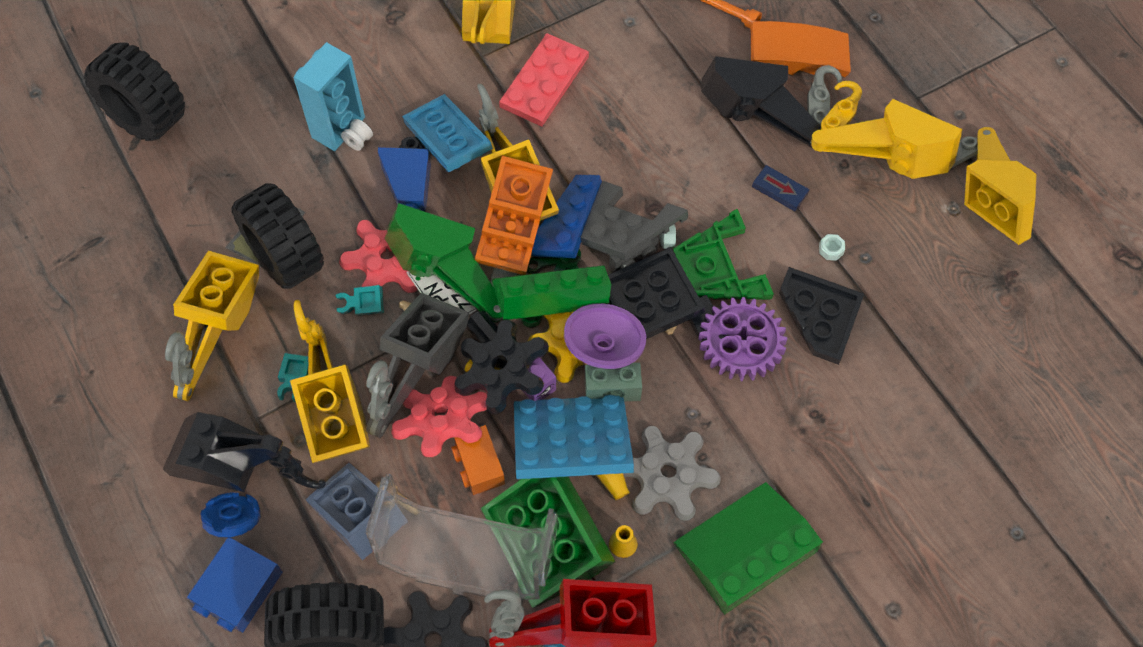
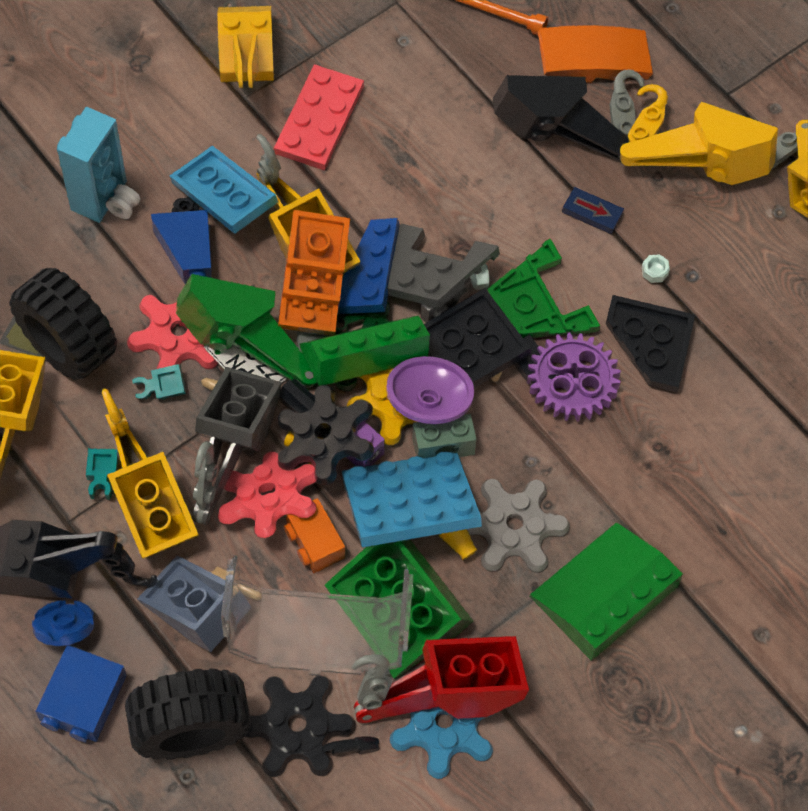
camera: 10 degrees left, 0 degrees up
(621, 547) = (478, 600): yellow cone -> none

